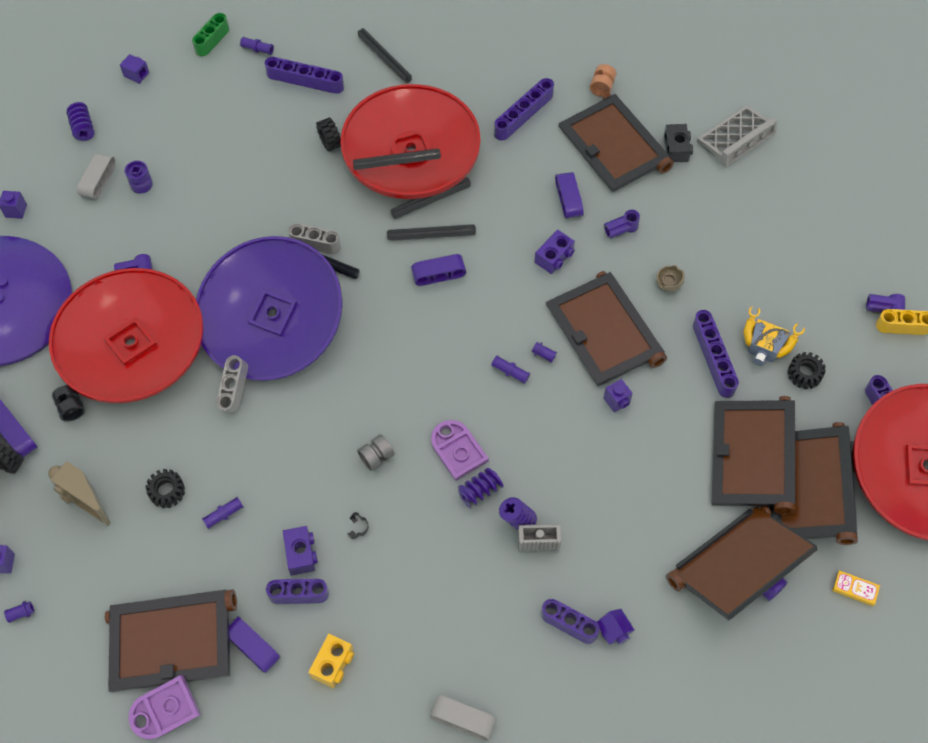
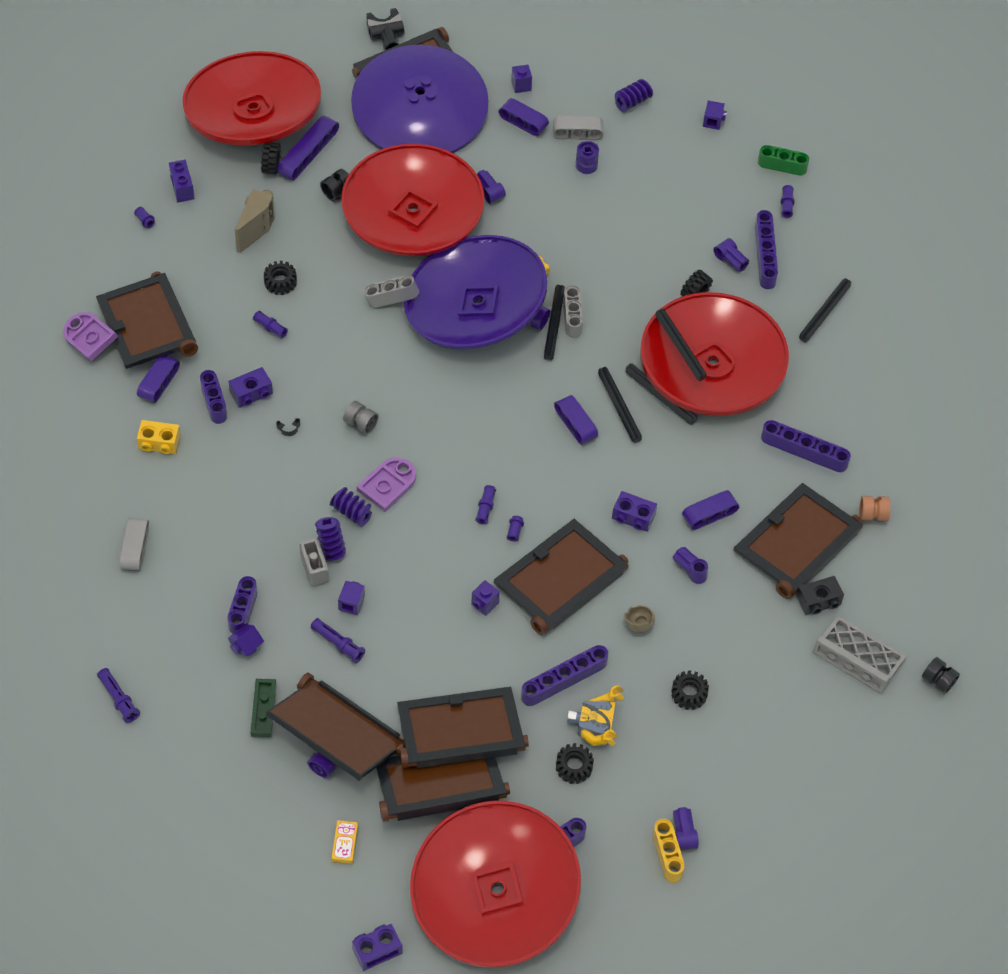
camera: 70 degrees right, 5 degrees down
(60, 216) = (523, 117): none -> dark purple beam
(294, 103) = (728, 251): none -> dark purple piece
(588, 512) = (351, 597): none -> dark purple brick
(638, 534) = (344, 645): none -> dark purple pin
(695, 629) = (263, 701): none -> dark green plate
(752, 254) = (690, 700): none -> black tyre
(773, 86) = (940, 675): none -> black wheel

